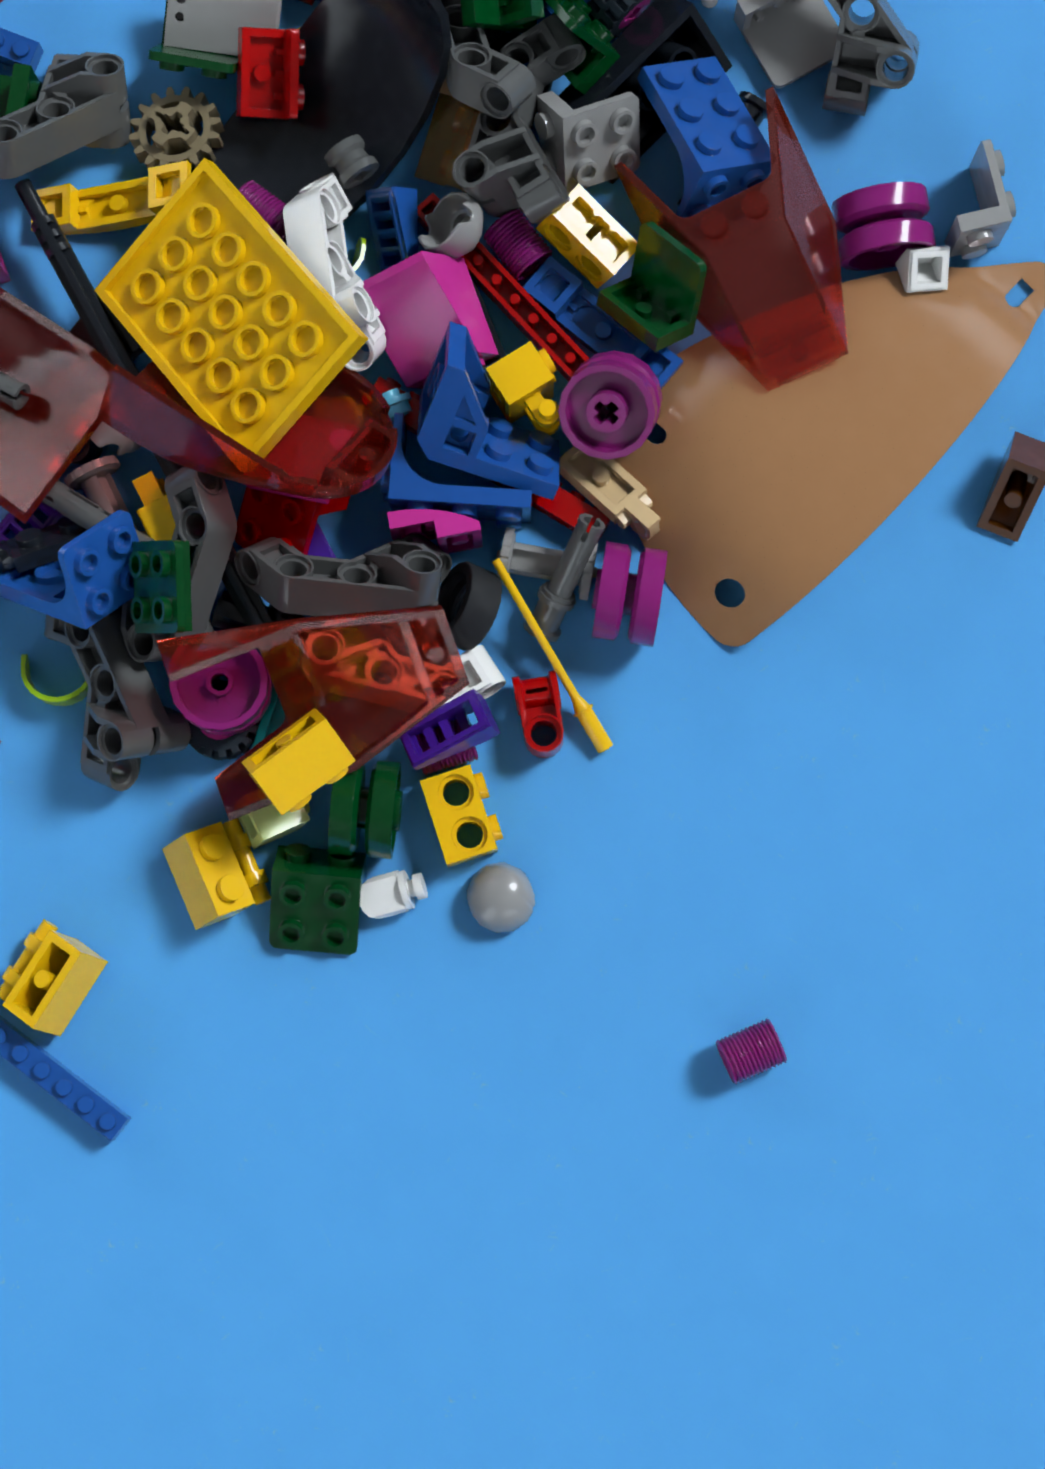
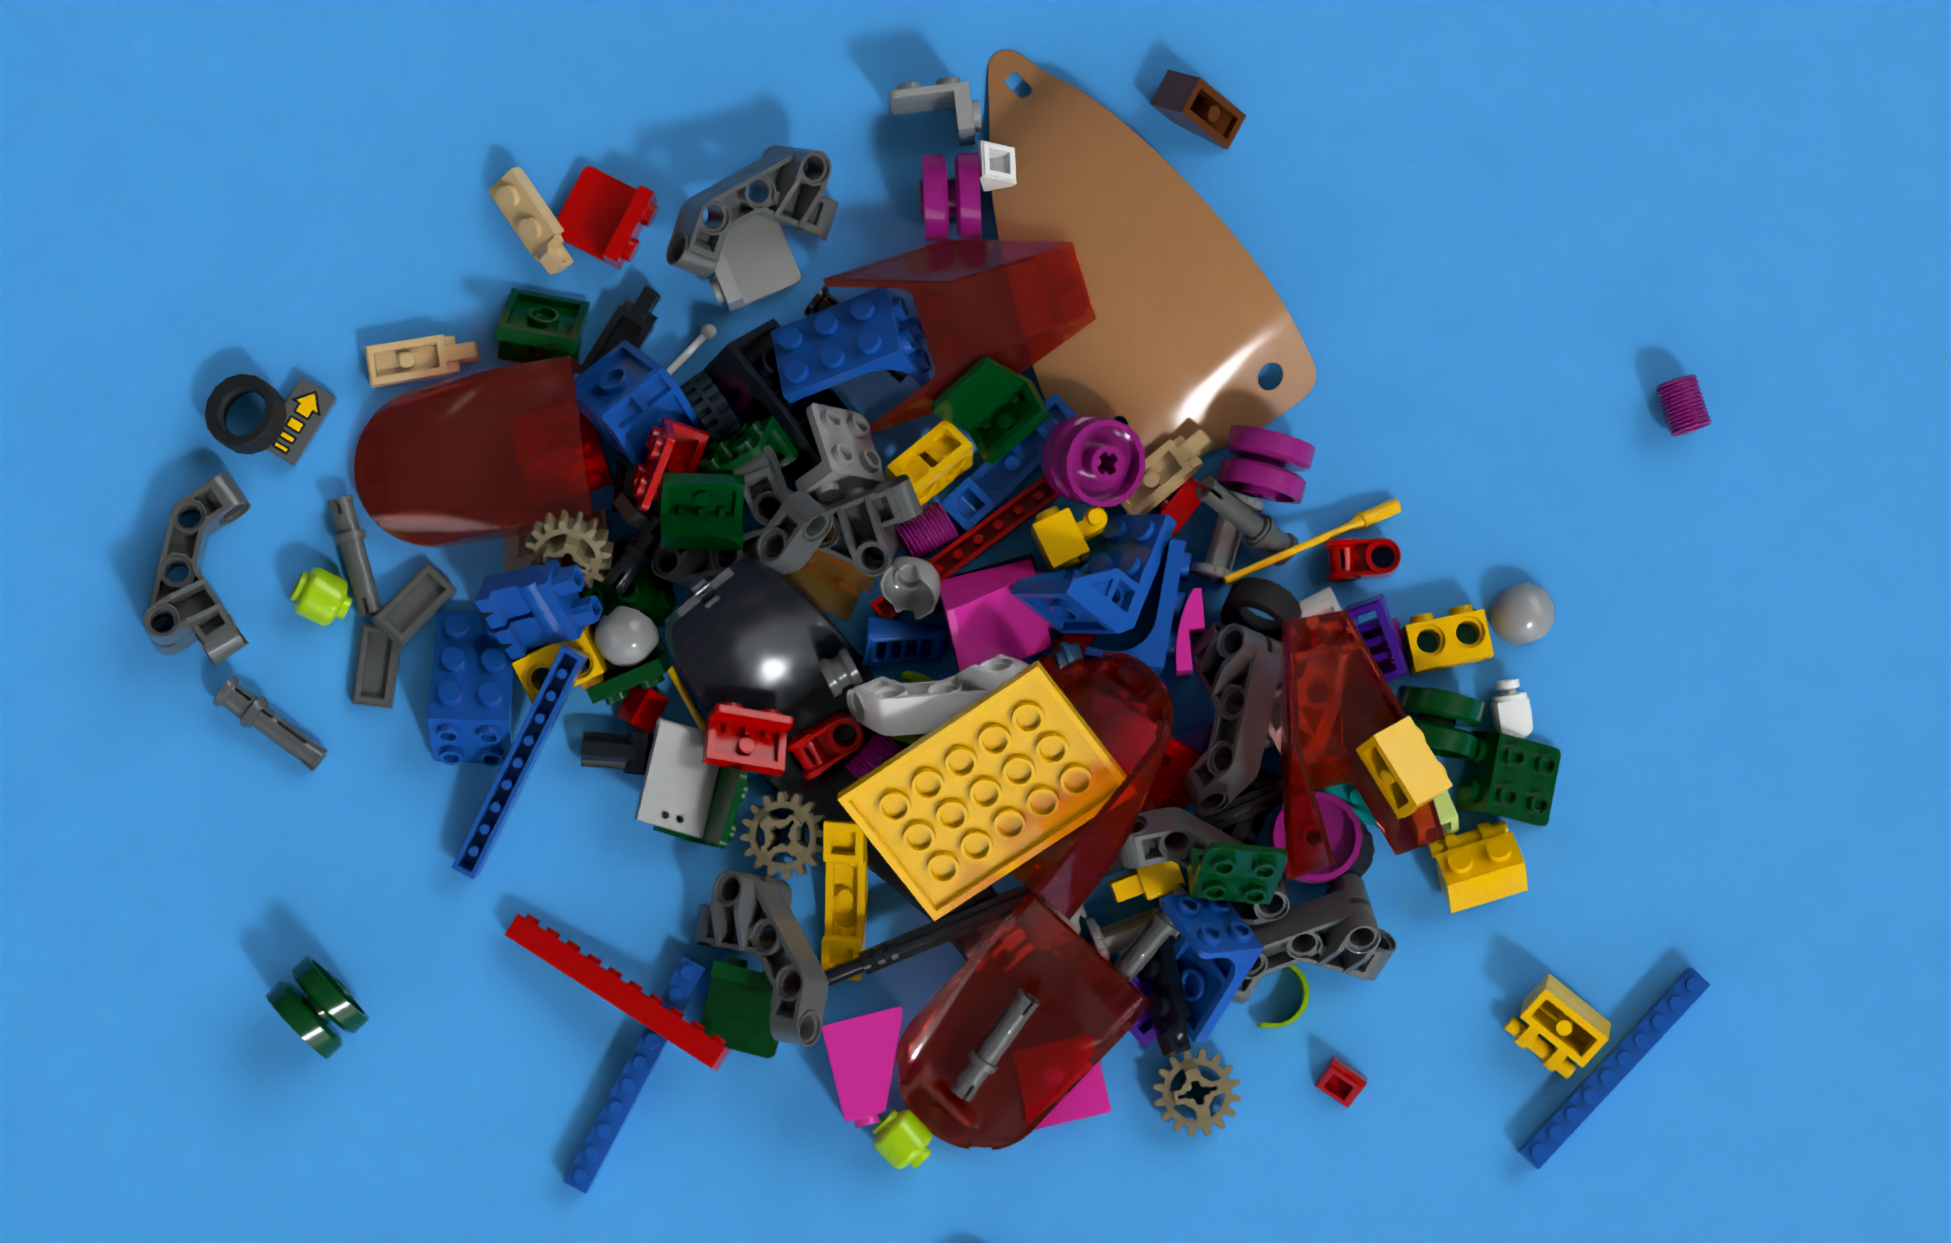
camera: 90 degrees left, 0 degrees up
(274, 157) = (823, 744): none -> red piece

